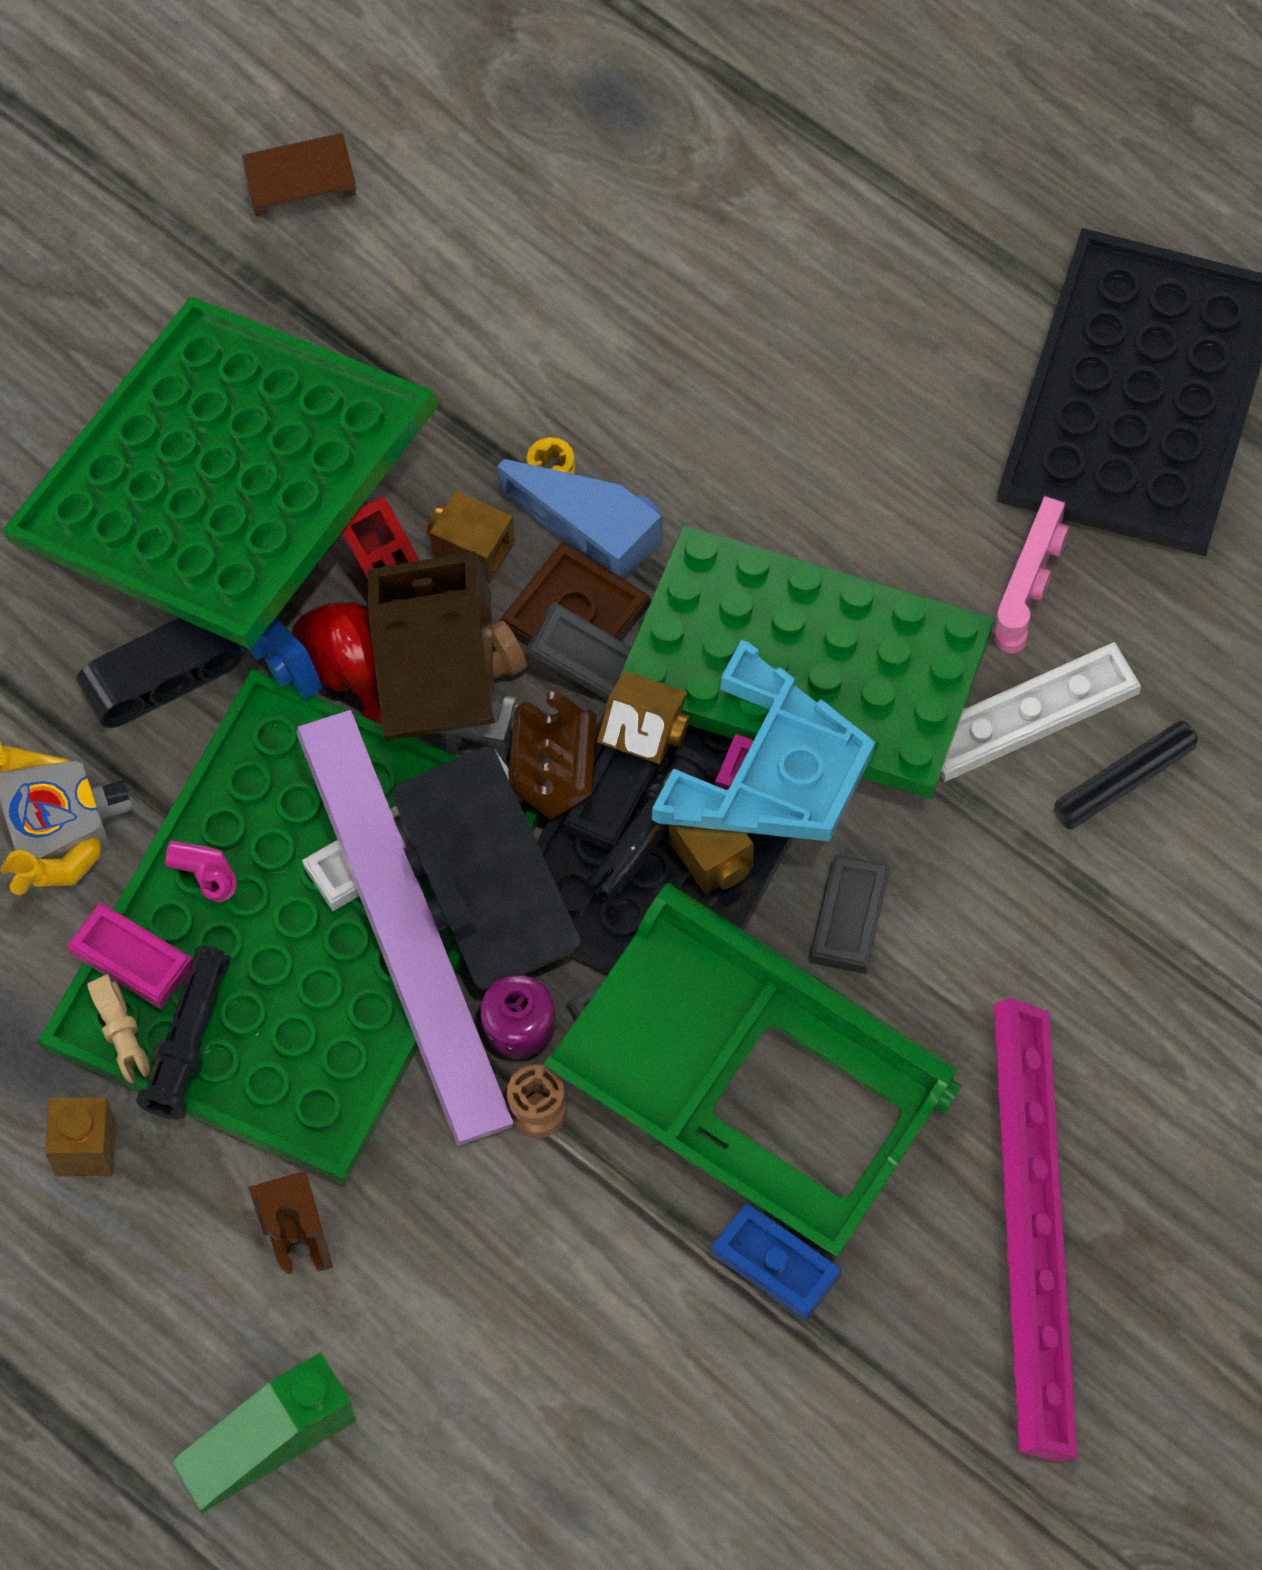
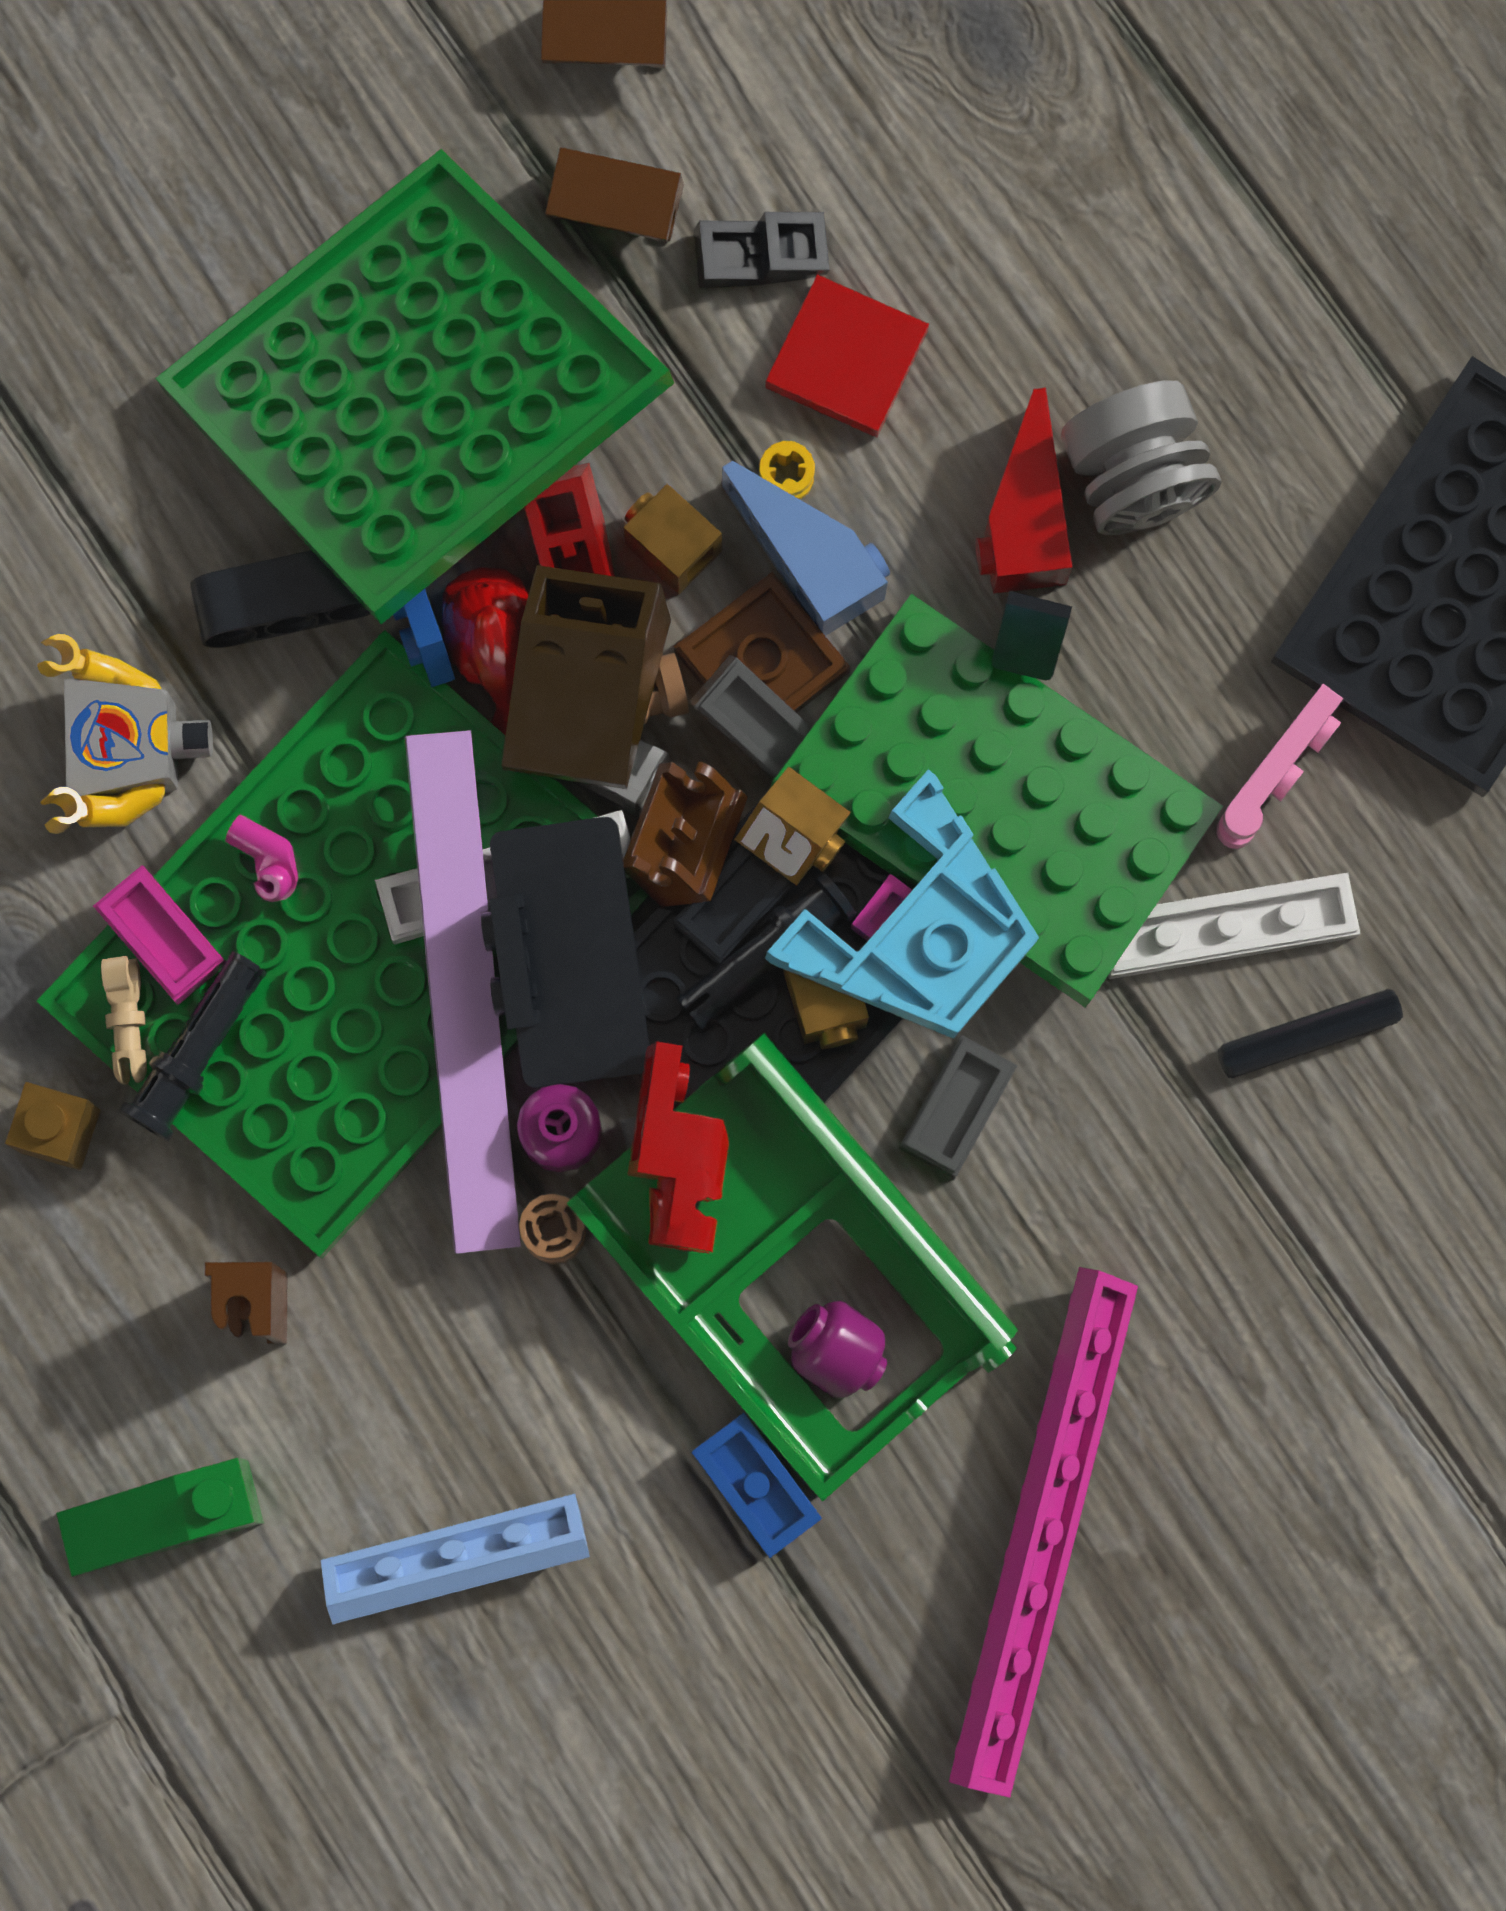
camera: 10 degrees right, 15 degrees up
(344, 290) = (615, 194): none -> reddish brown hinge
(485, 304) = (763, 251): none -> black slope
(533, 1394) = (454, 1559): none -> light blue plate
(572, 365) = (847, 356): none -> red tile
(626, 998) = (679, 1151): none -> red plate
(763, 449) = (1027, 524): none -> red slope
(792, 519) = (1030, 636): none -> black slope
(811, 1129) = (838, 1349): none -> magenta head
(838, 368) = (1140, 457): none -> light grey wheel

